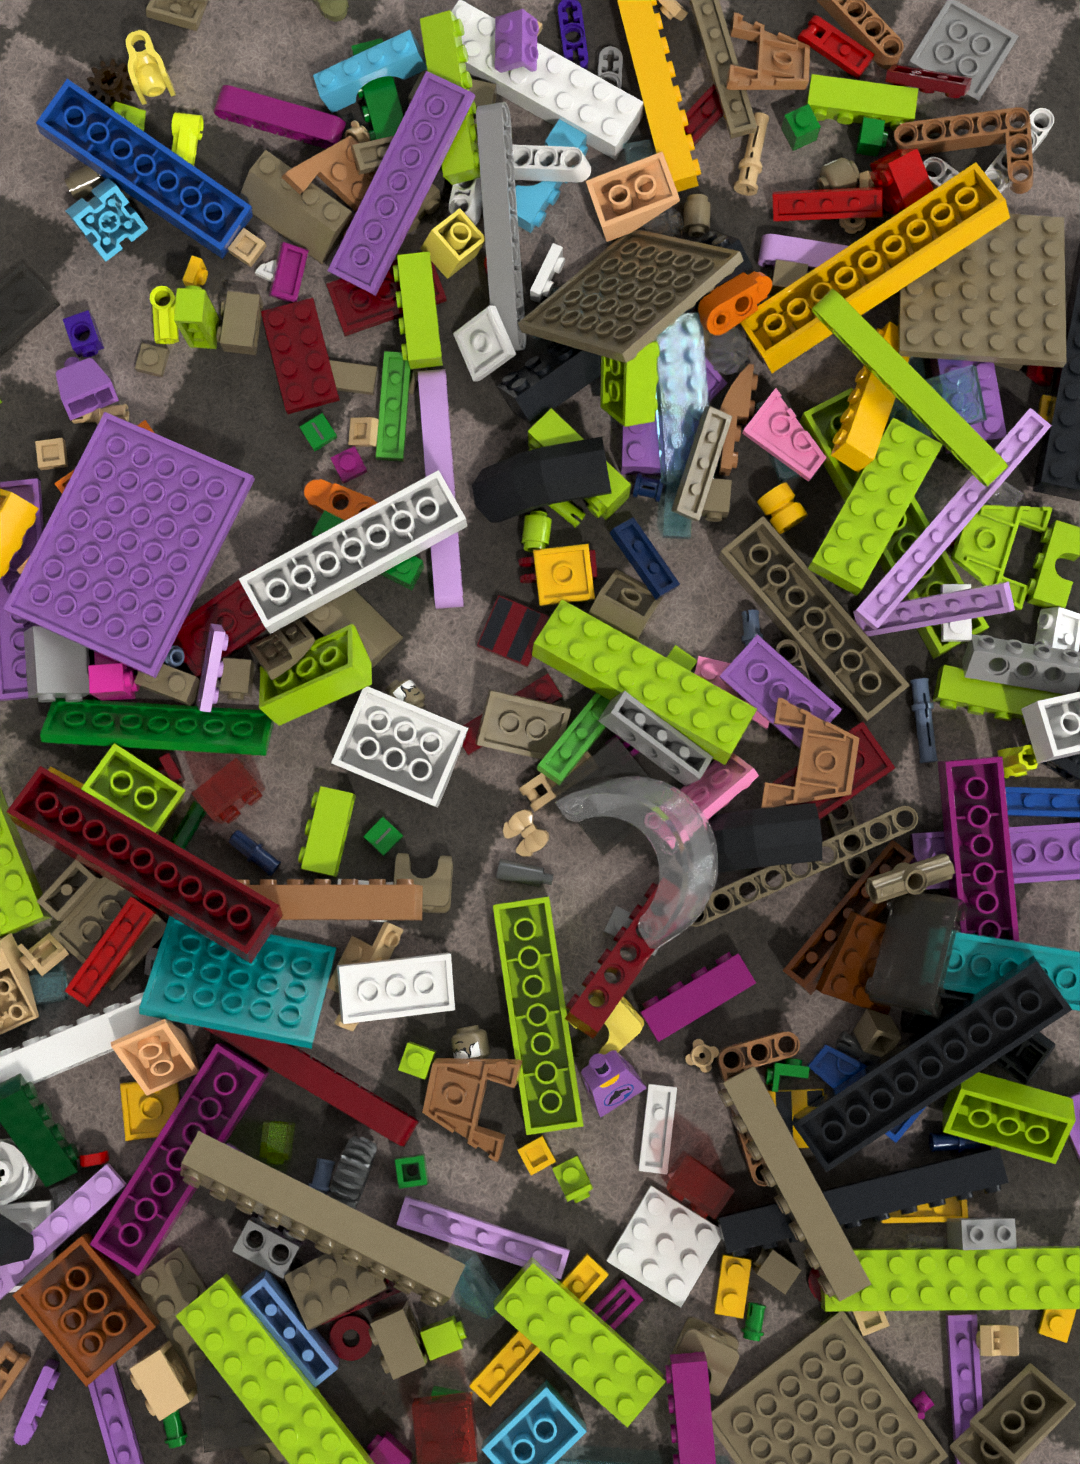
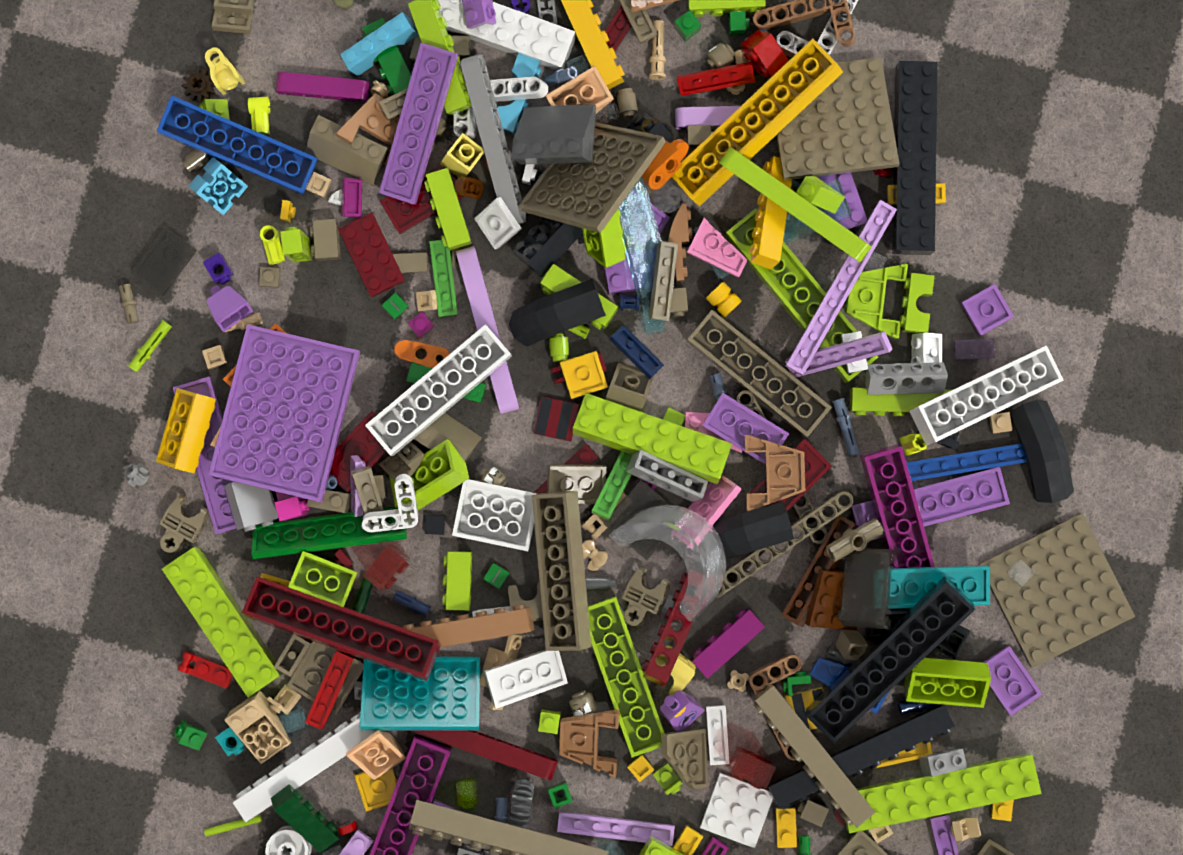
camera: 10 degrees left, 5 degrees up
(224, 682) = (367, 491): none -> dark tan plate
(262, 718) = (399, 514): none -> white beam
(311, 747) = (435, 524): none -> black tile
(454, 286) = (468, 187): none -> reddish brown plate
(477, 842) = (561, 571): none -> dark tan brick
(579, 917) = (640, 605): none -> dark tan piece
(588, 234) = (555, 135): none -> dark grey slope
(608, 1149) = (688, 755): none -> dark tan plate
(612, 160) = (561, 76): none -> sand blue pin
(875, 507) = (786, 290): lime brick -> none
(948, 380) = (820, 194): none -> lime slope

